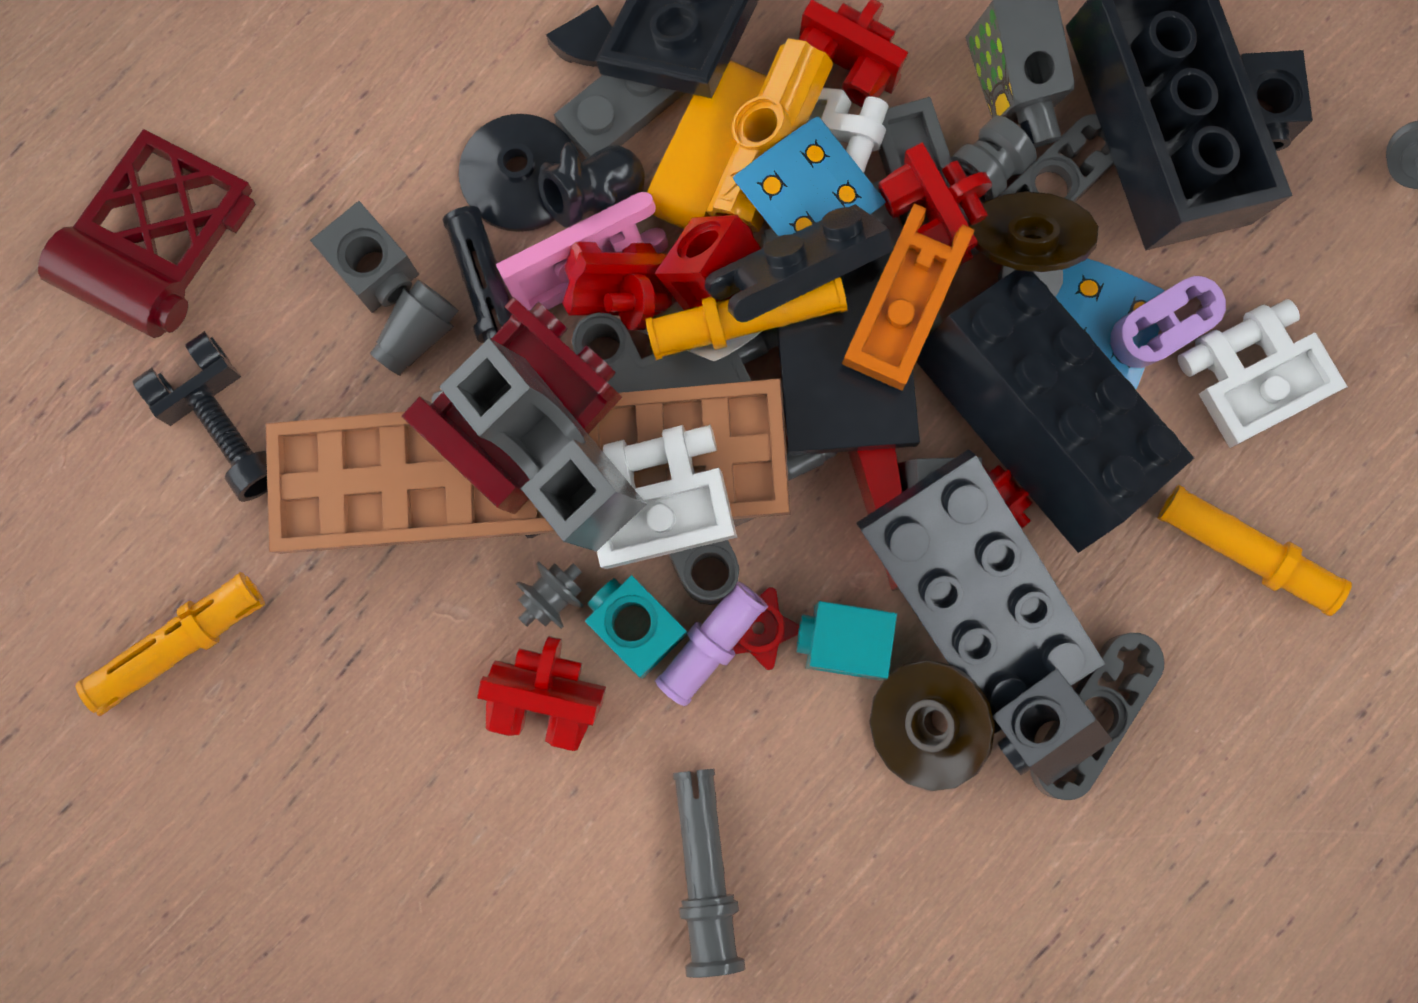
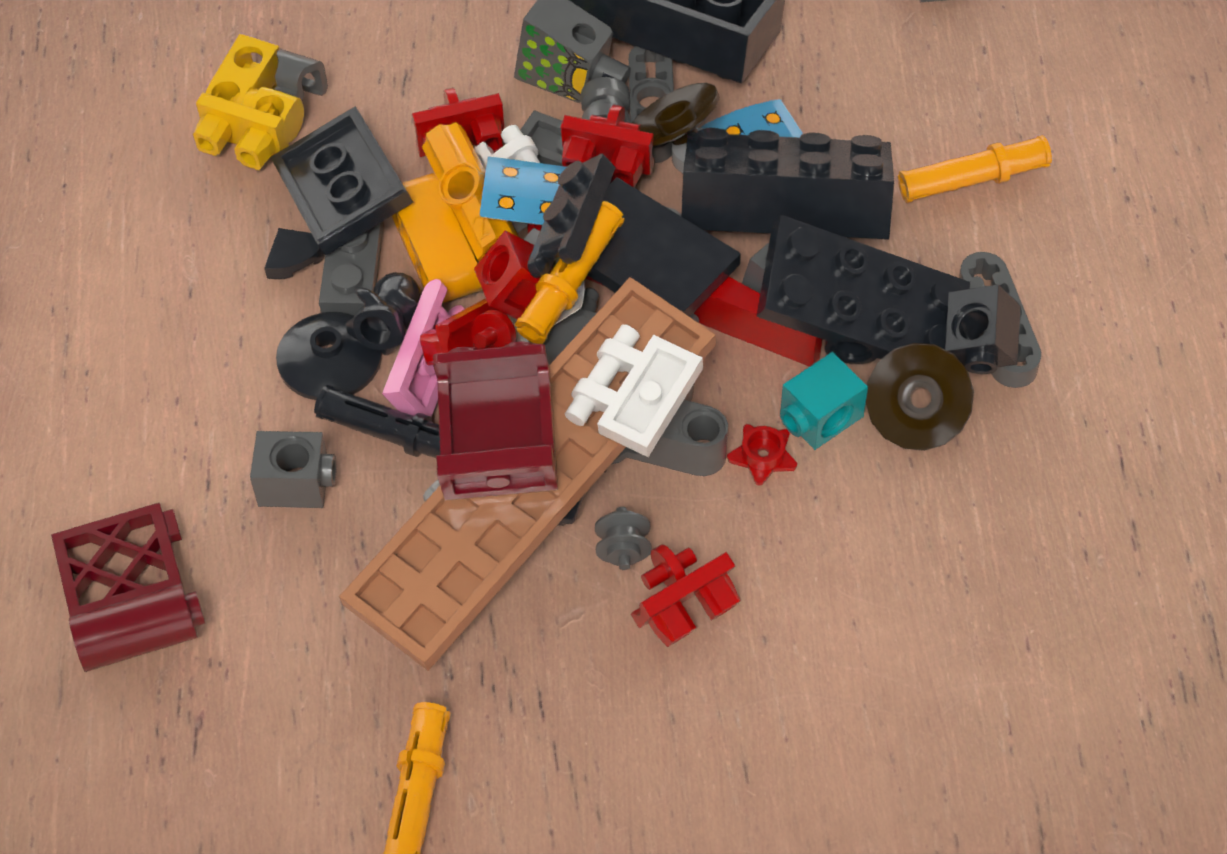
camera: 45 degrees left, 25 degrees down
(248, 469) = (258, 617): black bar -> none
(413, 327) = (364, 478): dark grey cone -> none
(567, 471) = (504, 405): dark grey arch -> none
(650, 650) = (697, 486): teal brick -> none
(708, 906) = (915, 607): dark grey pin -> none
(711, 644) = (748, 473): lavender pin -> none
(905, 303) = (652, 190): orange hinge -> none
(1174, 332) = (787, 106): lavender beam -> none
(1269, 390) = (887, 89): white plate -> none

